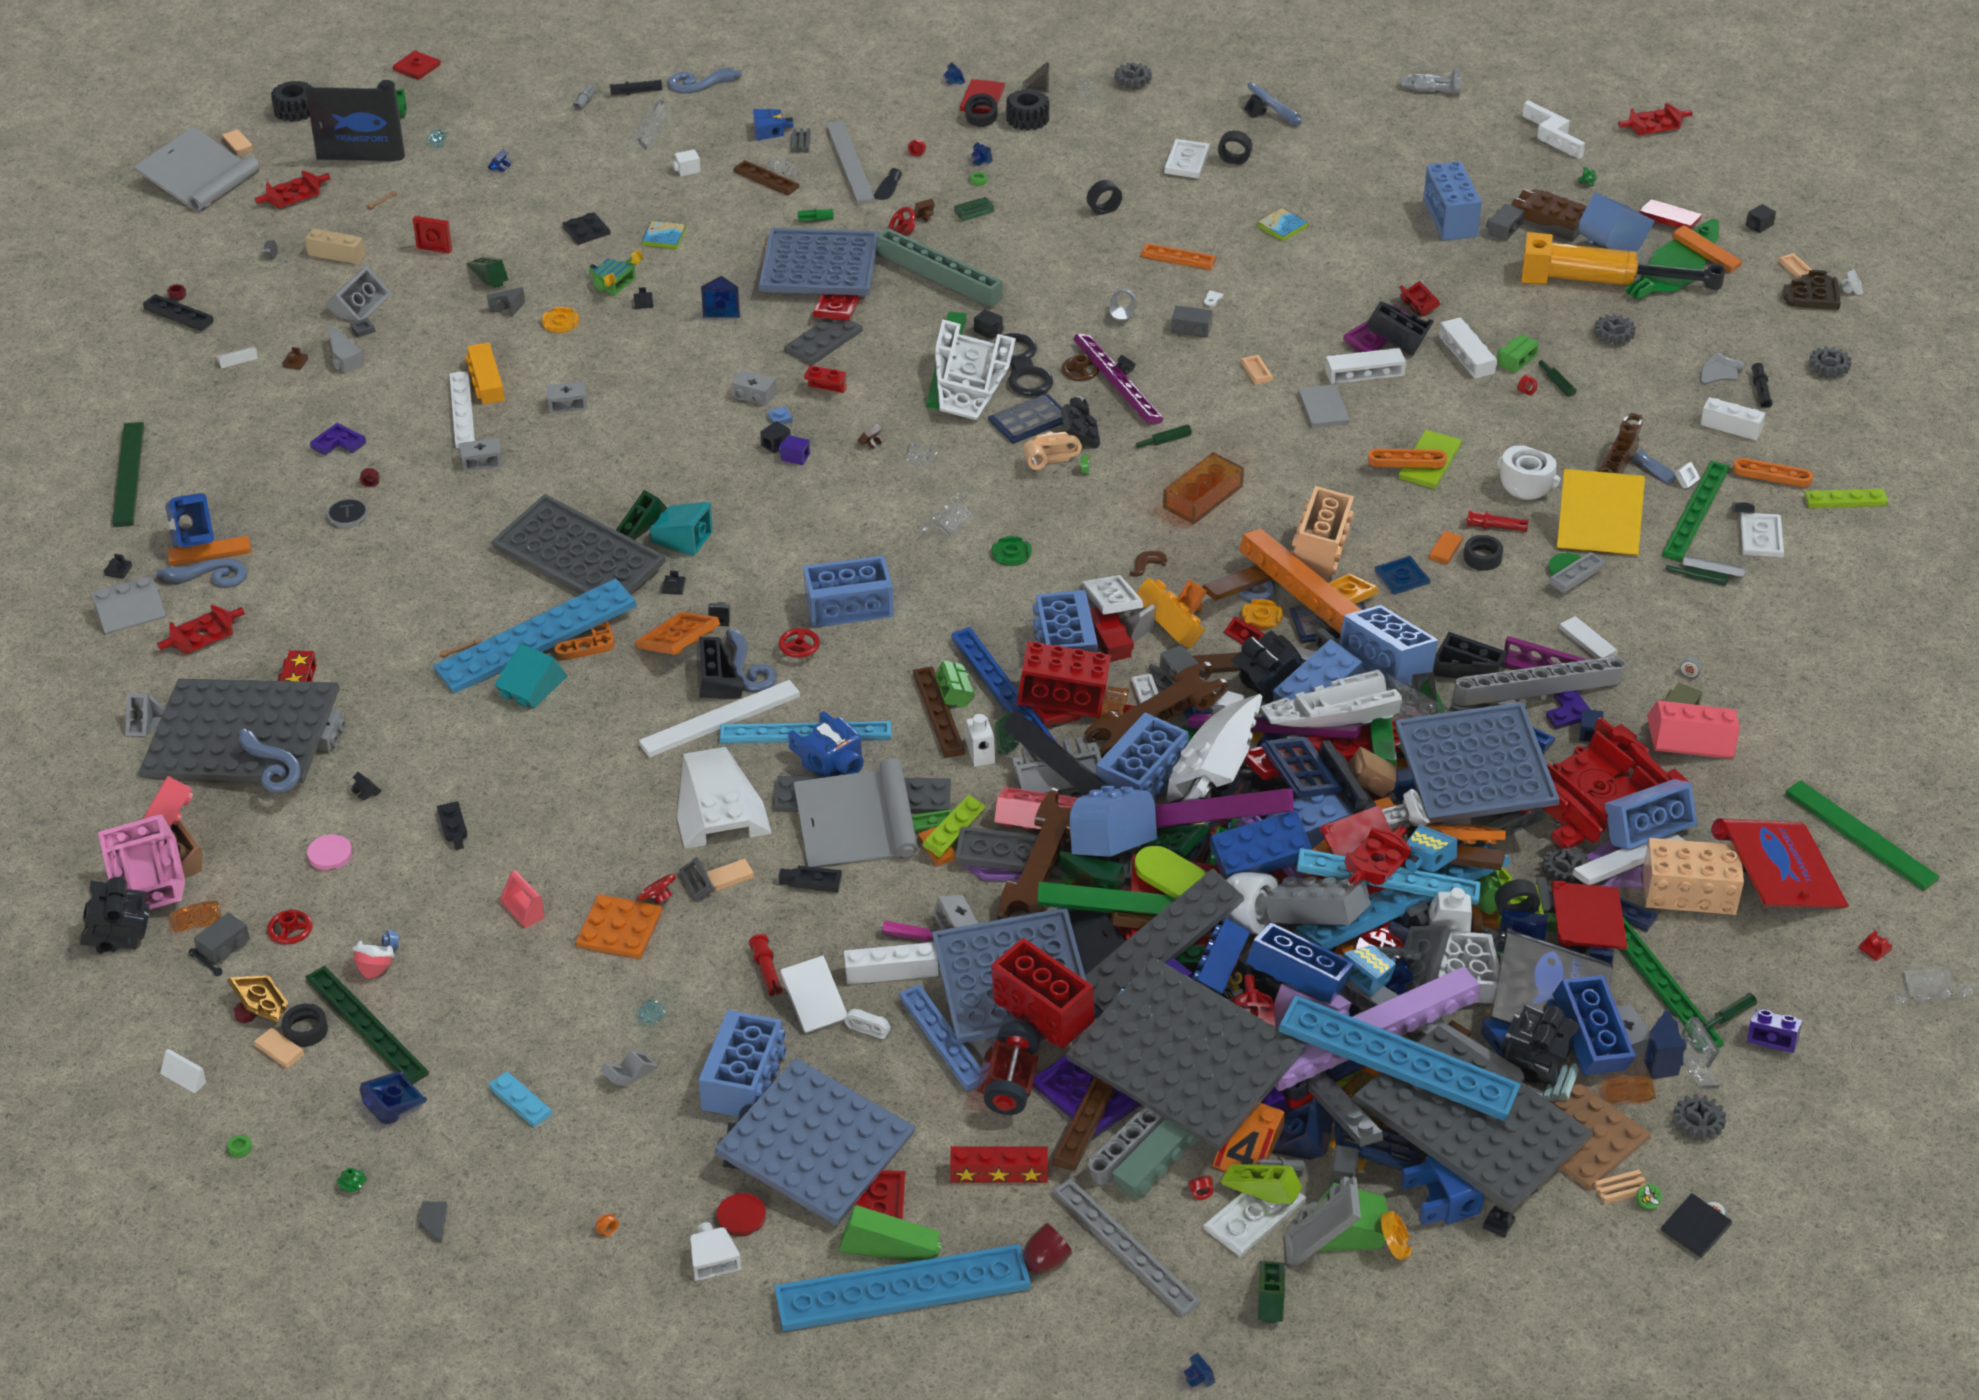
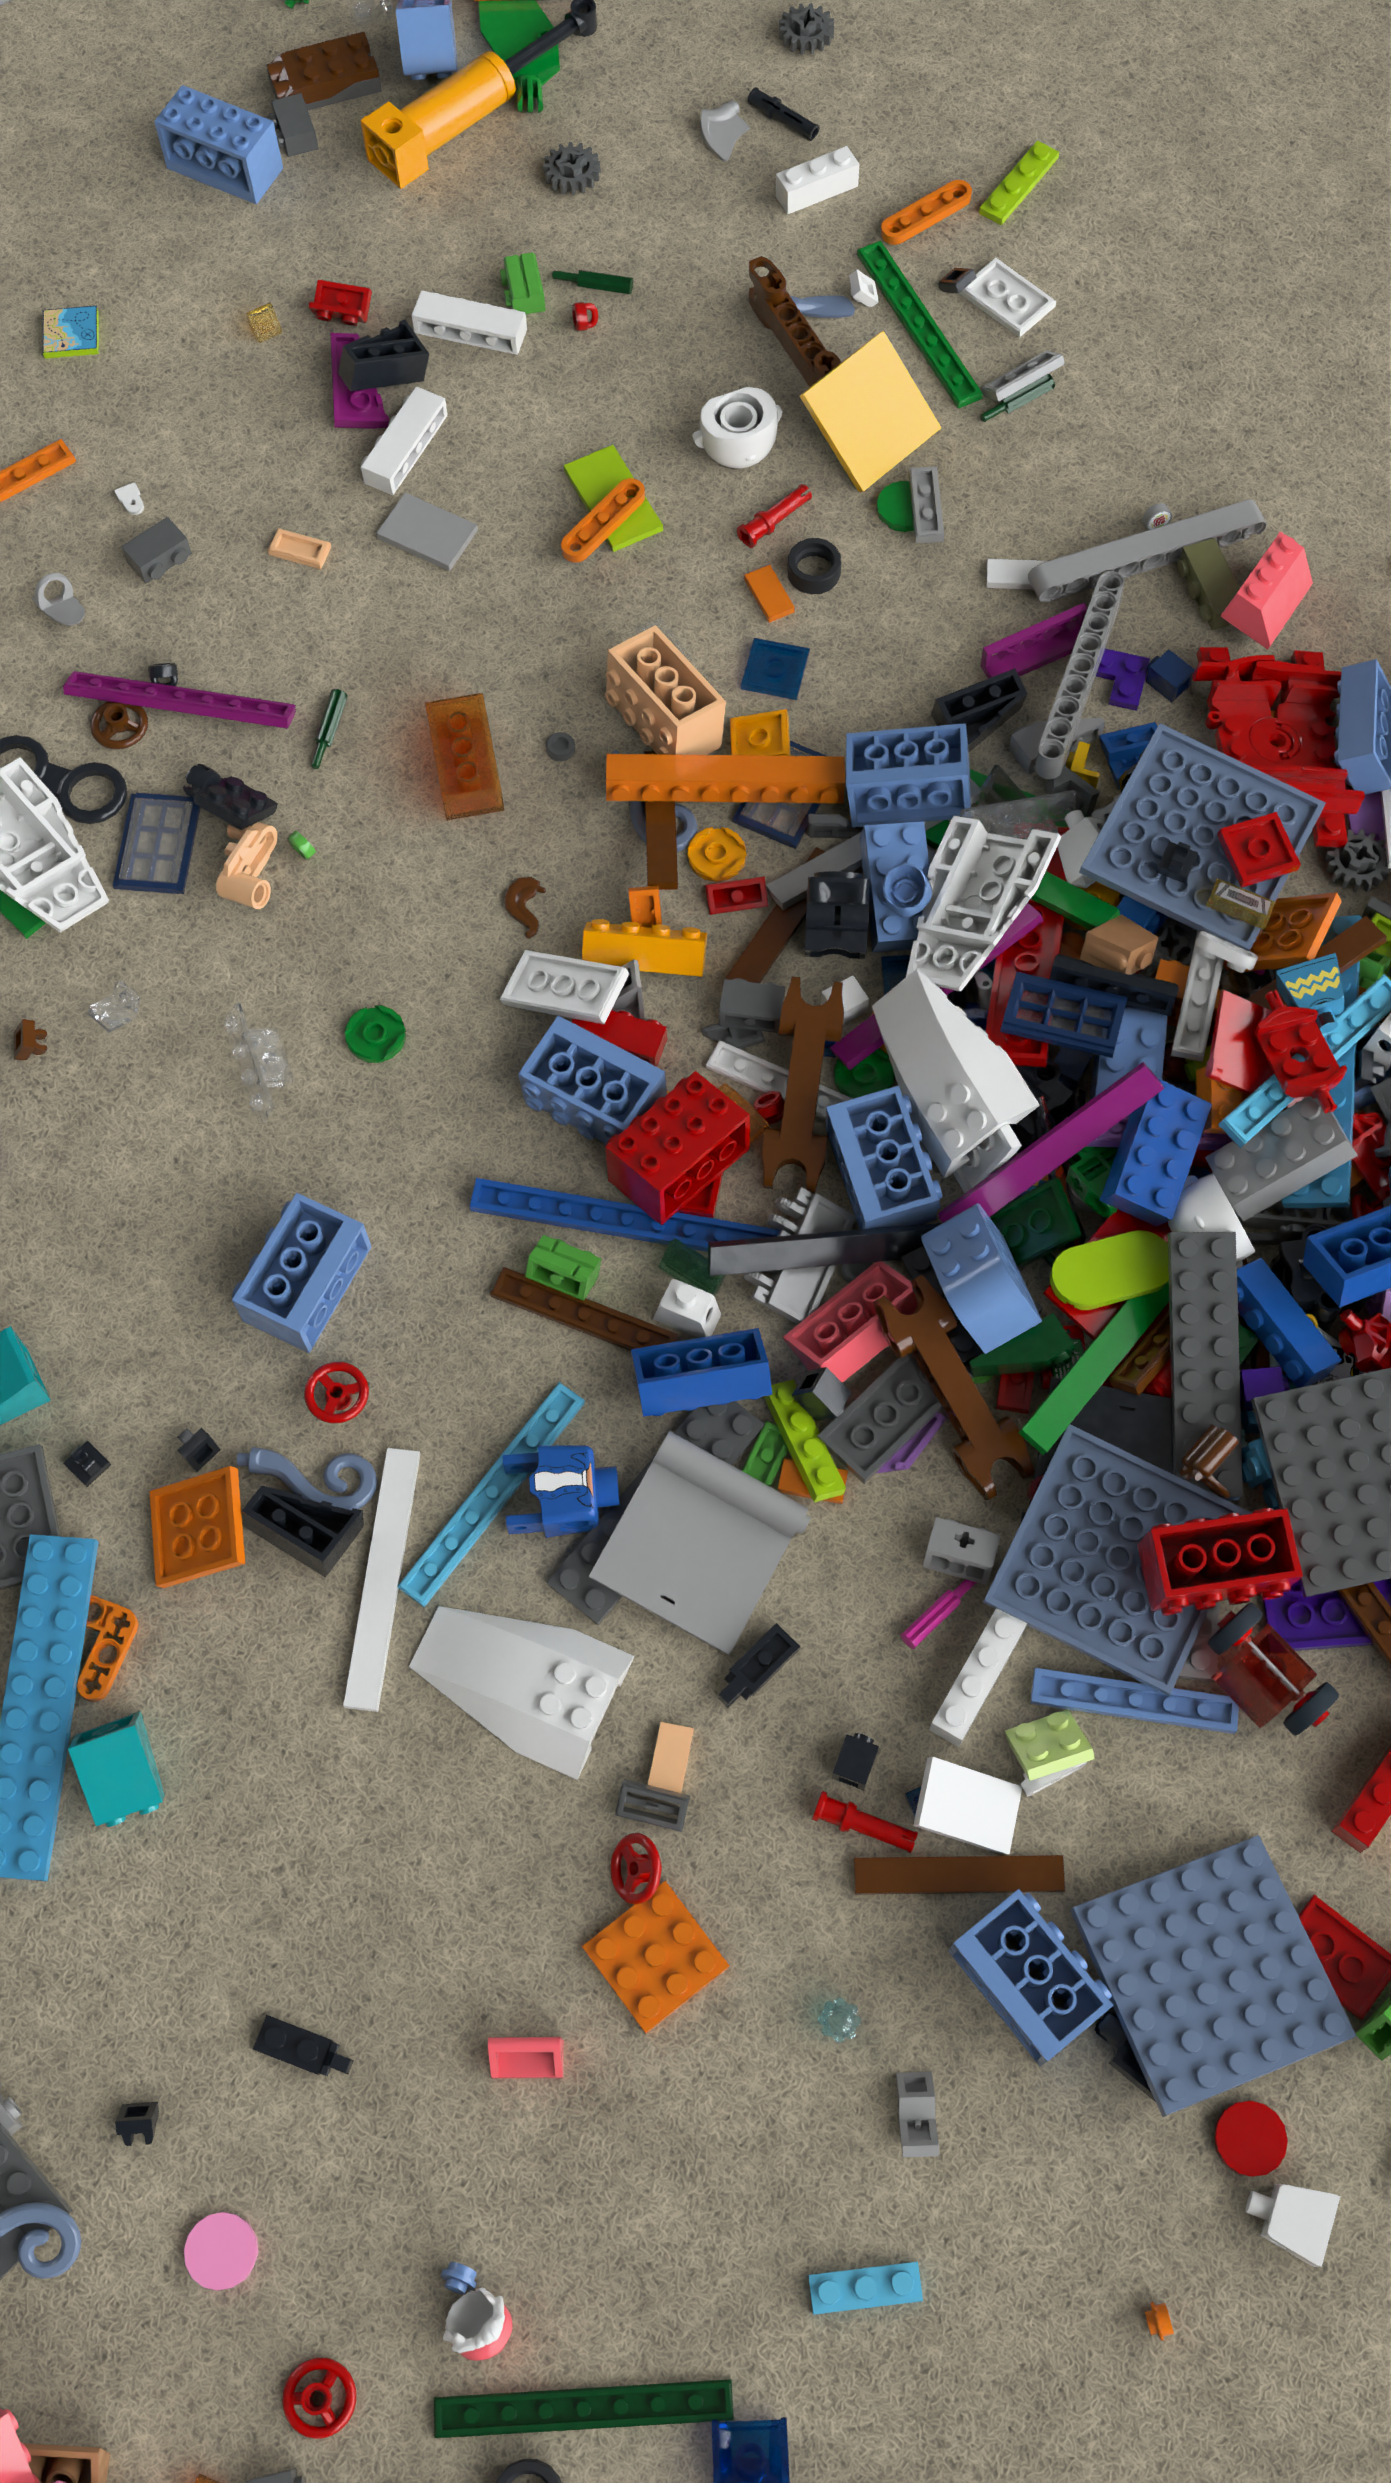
camera: 50 degrees left, 25 degrees up
(762, 1005) = (959, 1874): none -> reddish brown tile
(796, 941) = (855, 1760): none -> black brick
(879, 1008) = (1049, 1744): none -> yellowish green plate
(948, 761) = (701, 1372): none -> blue brick
(984, 812) = (821, 1394): none -> black brick
(1104, 966) = (1207, 1456): none -> reddish brown piece
(1255, 522) = (560, 746): none -> dark grey tile
(1309, 673) = (906, 890): none -> medium blue hair
(1372, 280) = (264, 322): none -> clear yellow slope
(1443, 754) = (1177, 861): none -> black tile
(1449, 794) = (1240, 903): none -> slope
(1490, 781) = (1258, 849): none -> red plate
(1660, 671) = (1144, 550): none -> light grey beam

